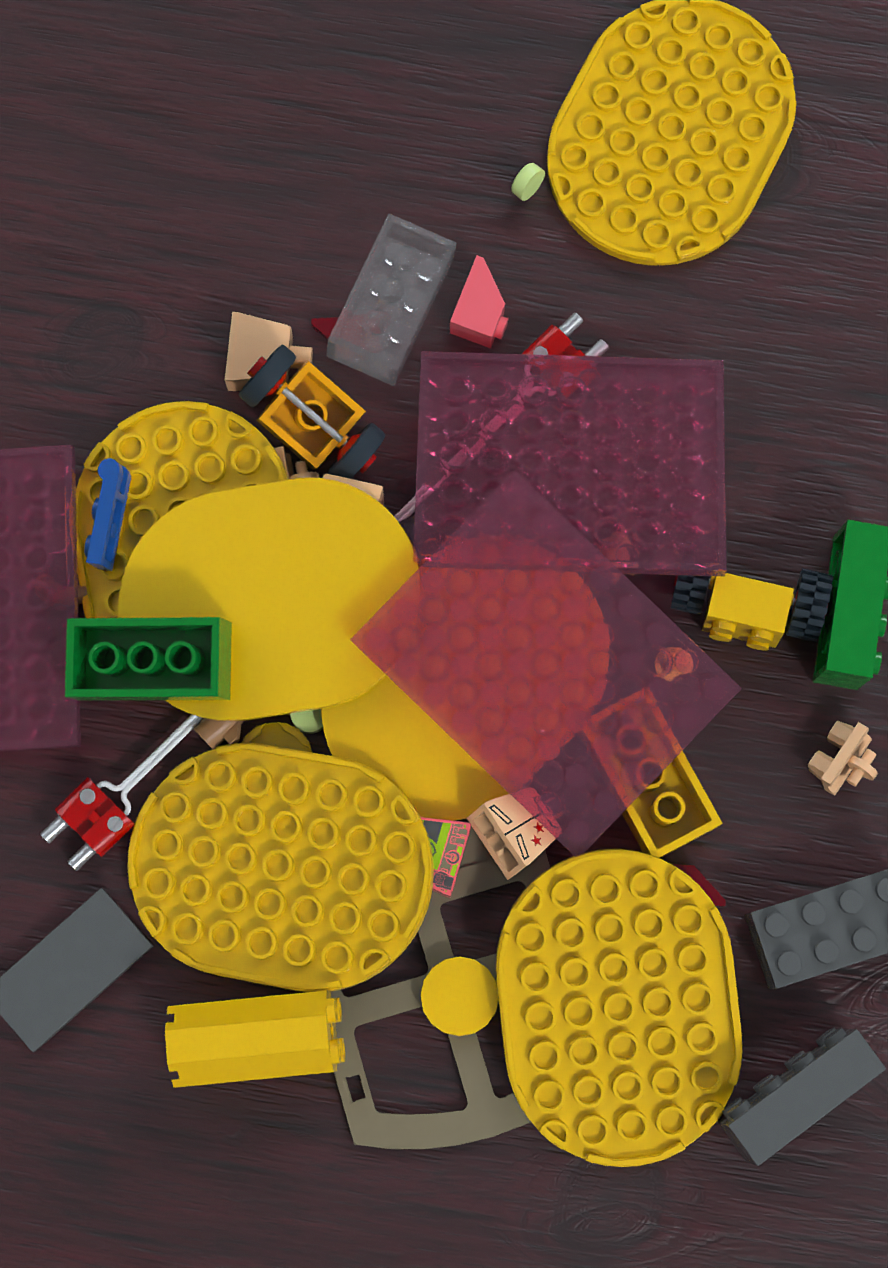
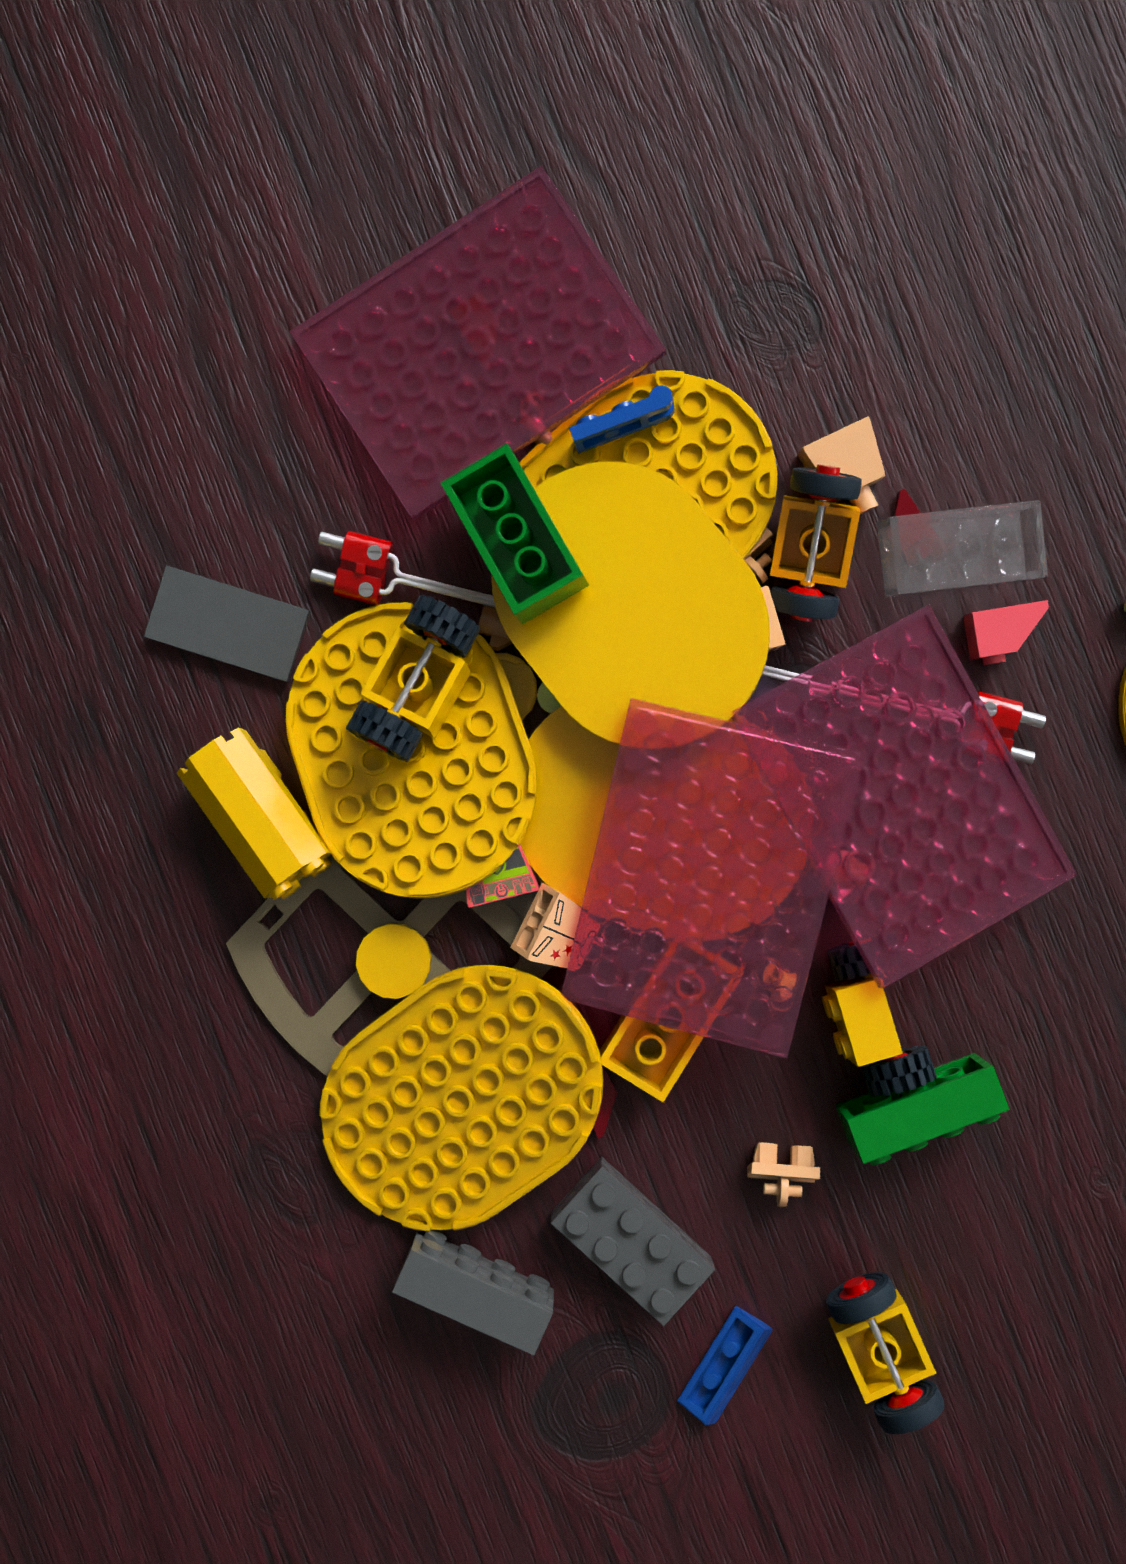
camera: 60 degrees right, 10 degrees up
(220, 819) = (415, 679): none -> brick

